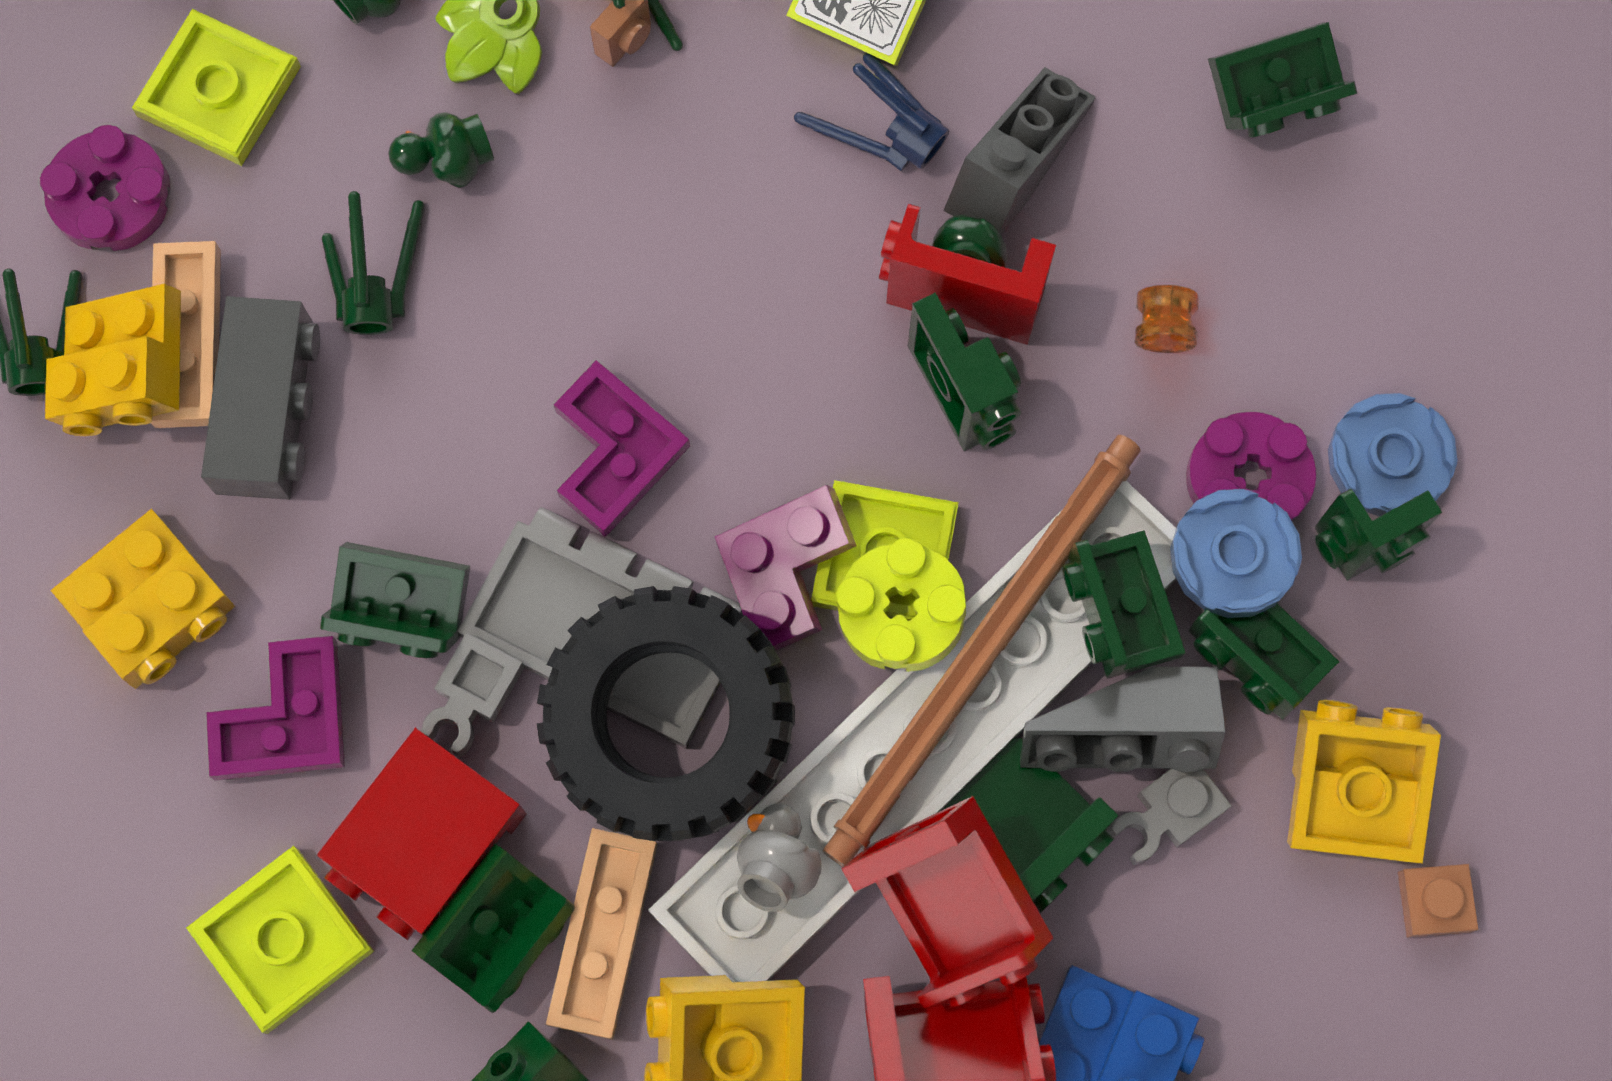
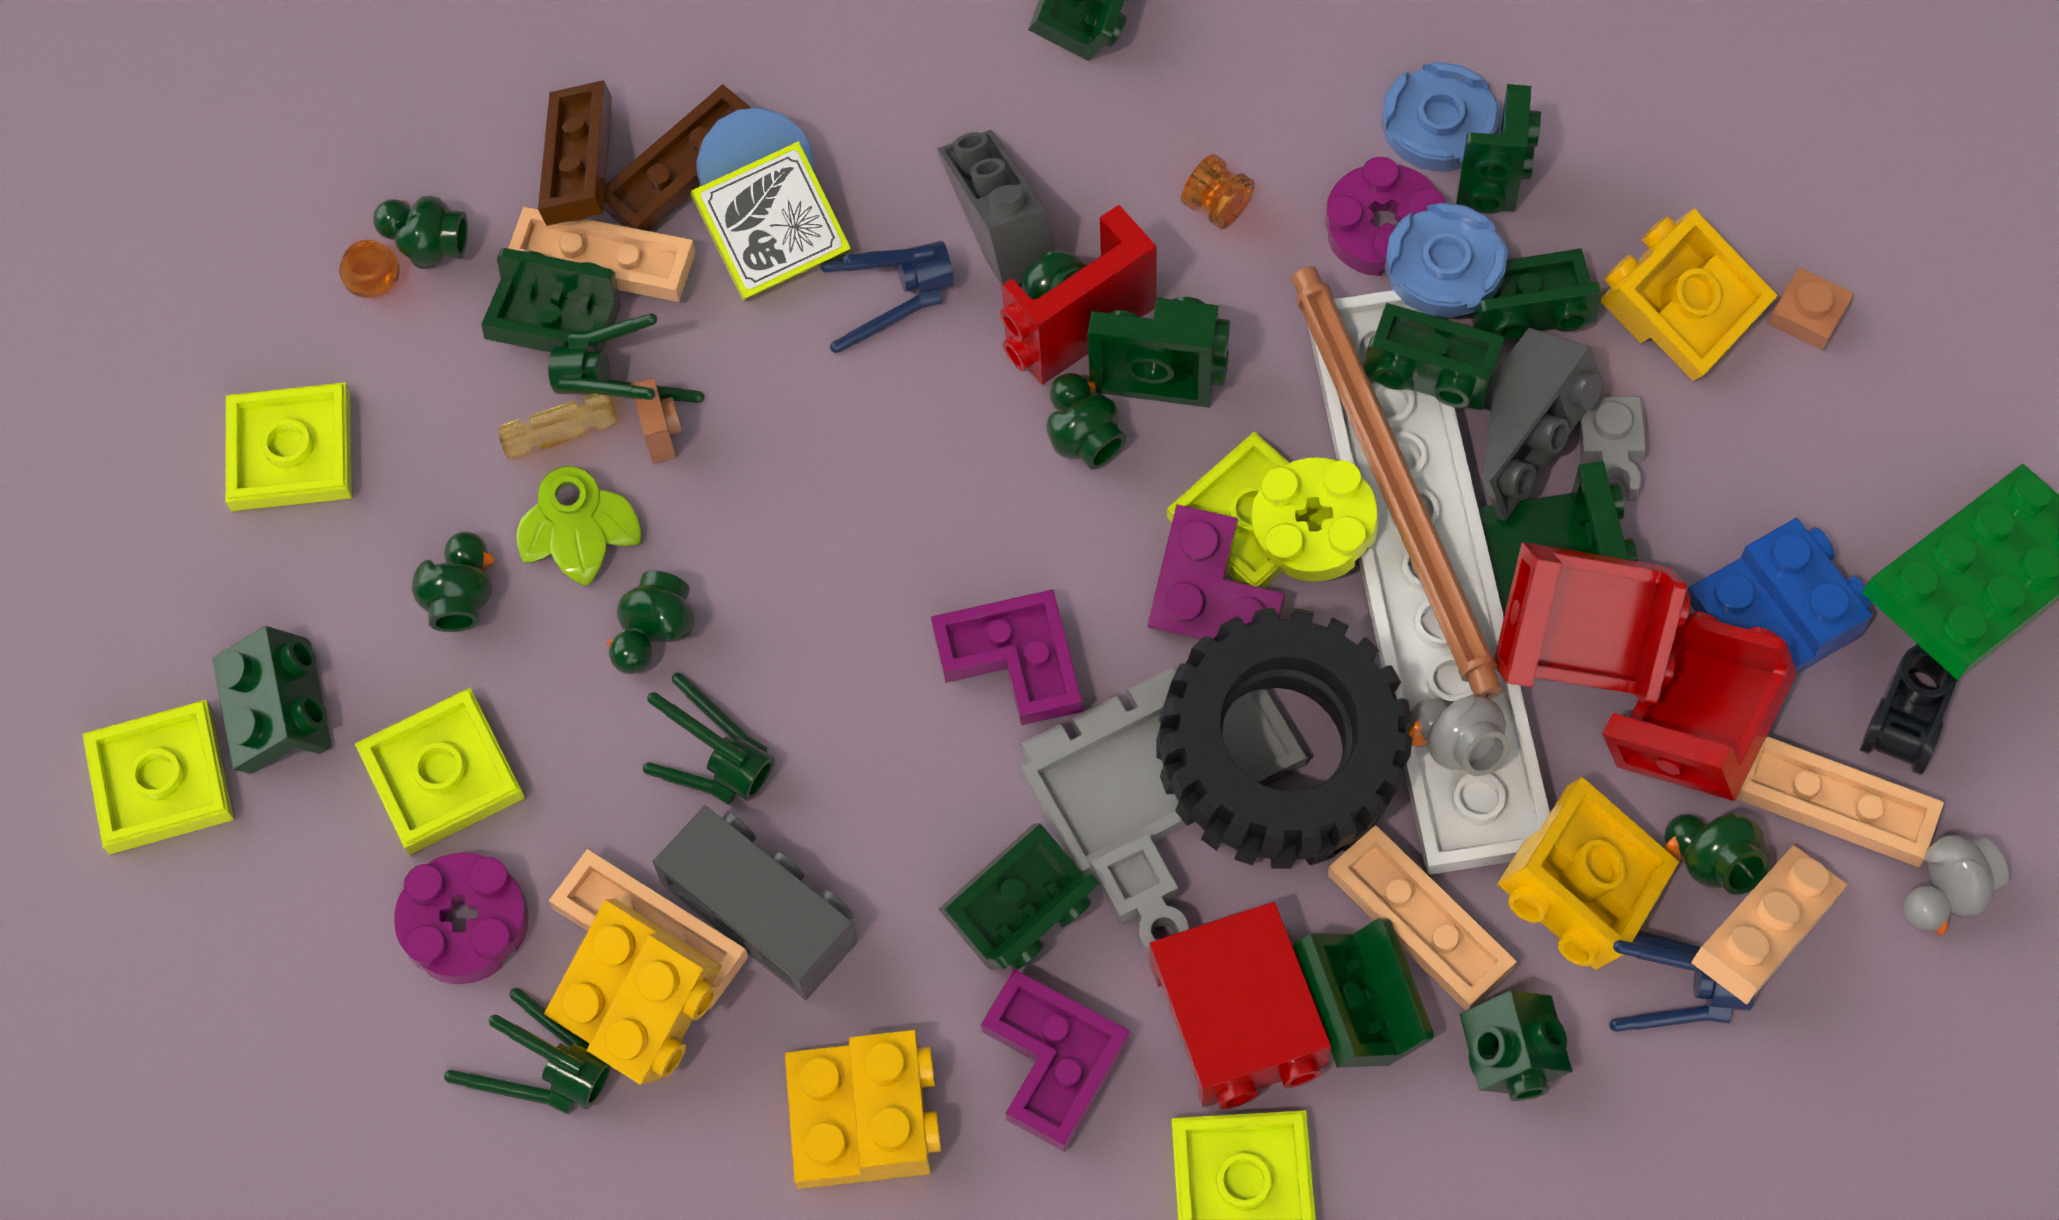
camera: 50 degrees left, 10 degrees down
(863, 365) = (1085, 423): none -> dark green animal

